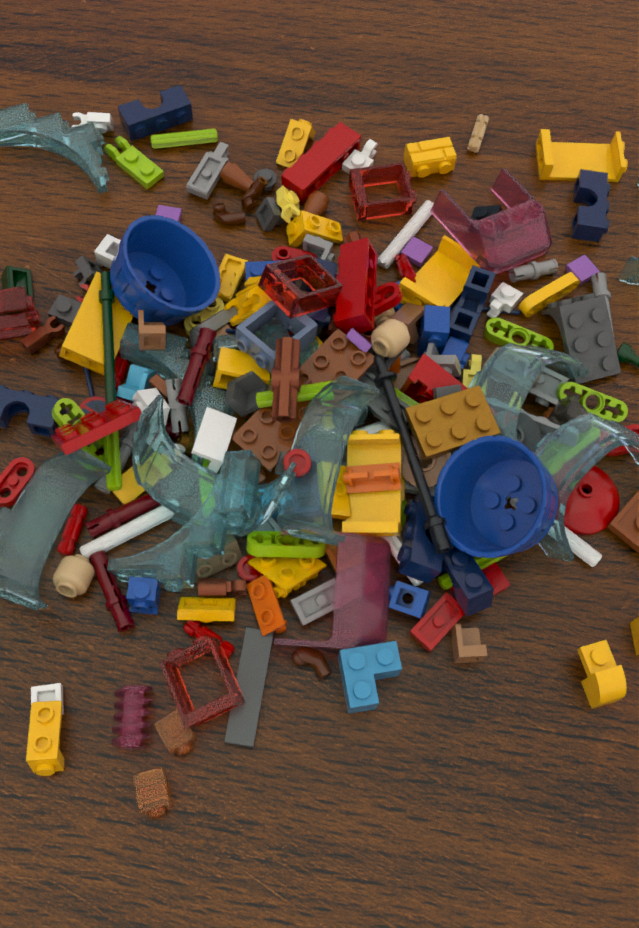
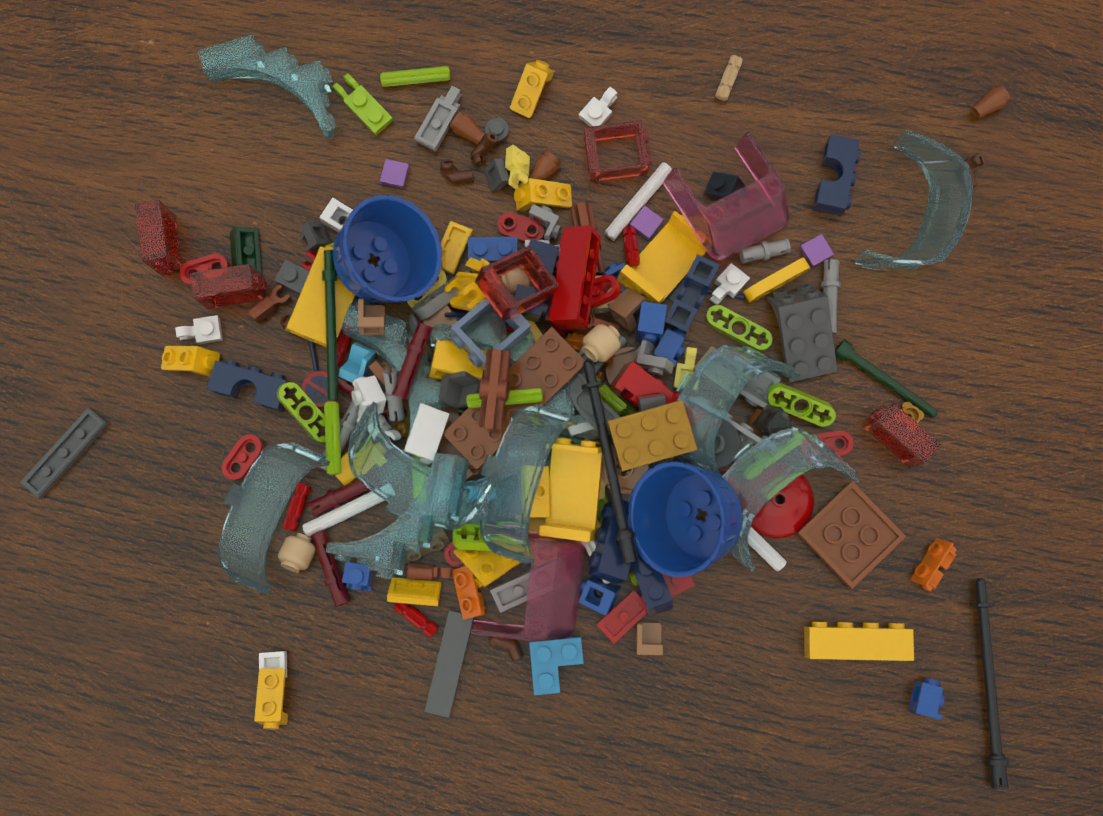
camera: 15 degrees right, 15 degrees up
(95, 426) = (315, 422): red plate -> none
(101, 121) = (327, 57): white plate -> none
(131, 716) = (345, 685): clear pink piece -> none
(141, 121) = (371, 56): dark blue arch -> none
(152, 792) = (361, 751): clear orange brick -> none
(174, 735) = (383, 701): clear orange bracket -> none
(190, 717) = (387, 666): clear red window -> none
(301, 458) = (503, 466): red tile -> none
(321, 161) = (555, 113): red brick -> none
(360, 341) = (571, 341): medium lavender tile -> none
(372, 478) = (571, 484): orange hinge -> none
(430, 157) = (672, 110): yellow brick -> none
(565, 160) = (839, 114): yellow panel -> none
(604, 678) = (765, 680): yellow brick -> none

